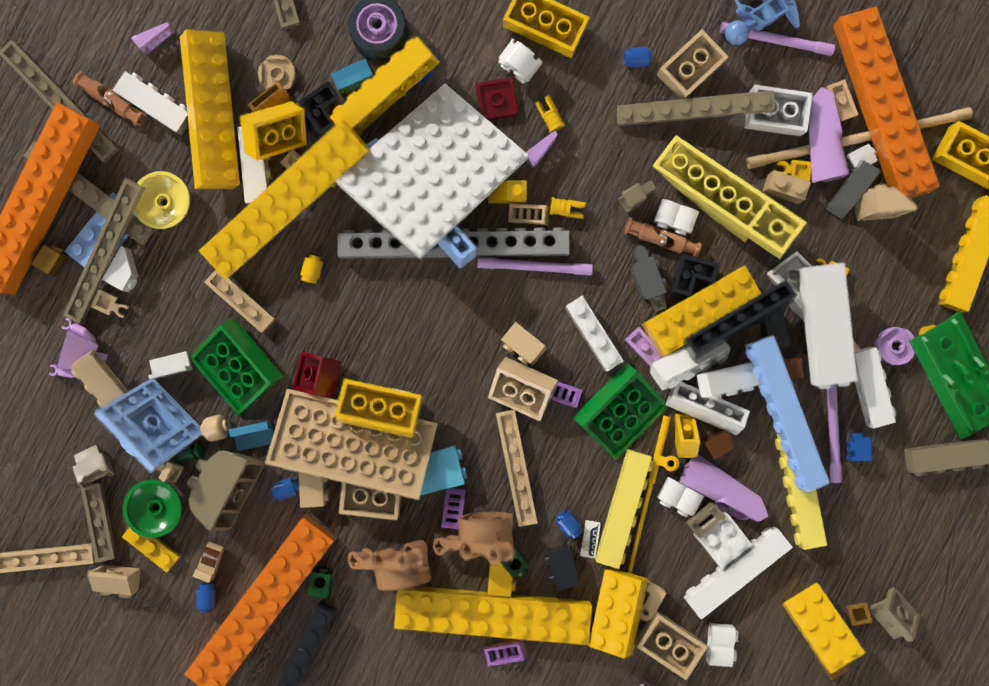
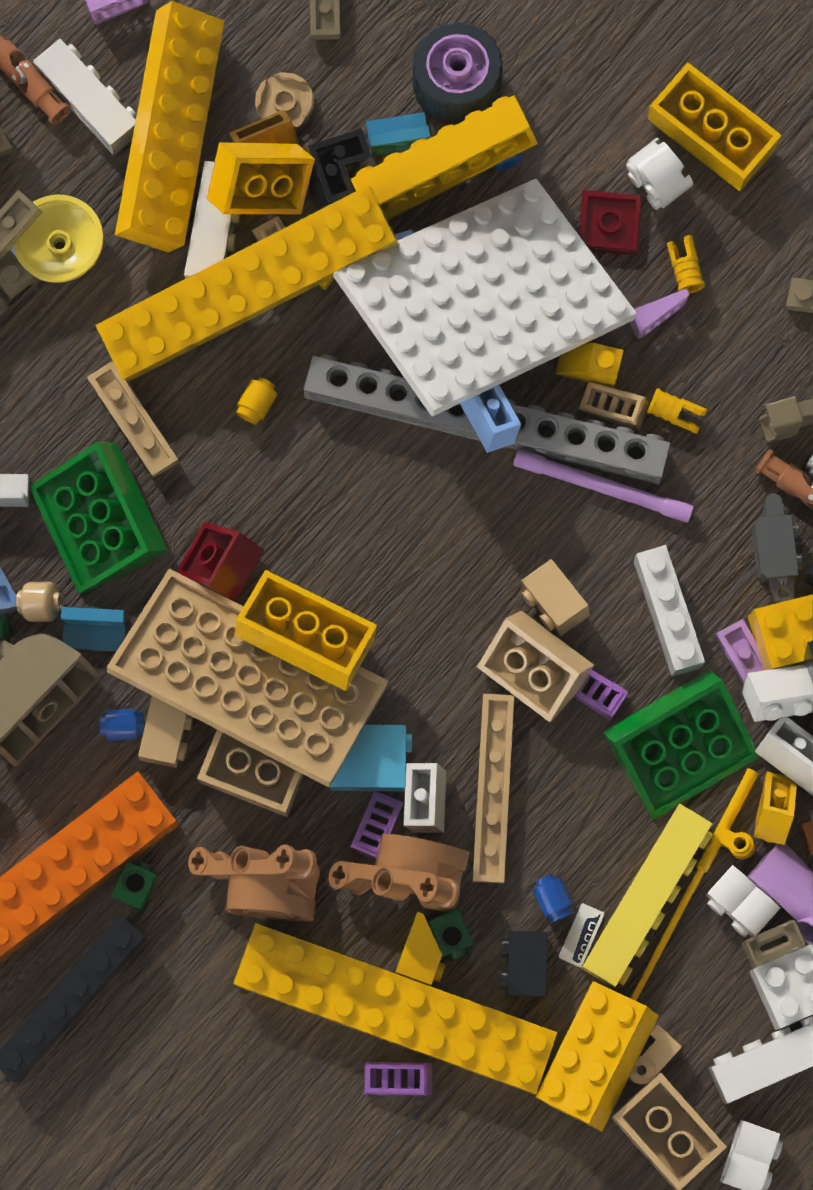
camera: 15 degrees right, 10 degrees down
(477, 486) = (425, 798): none -> white brick

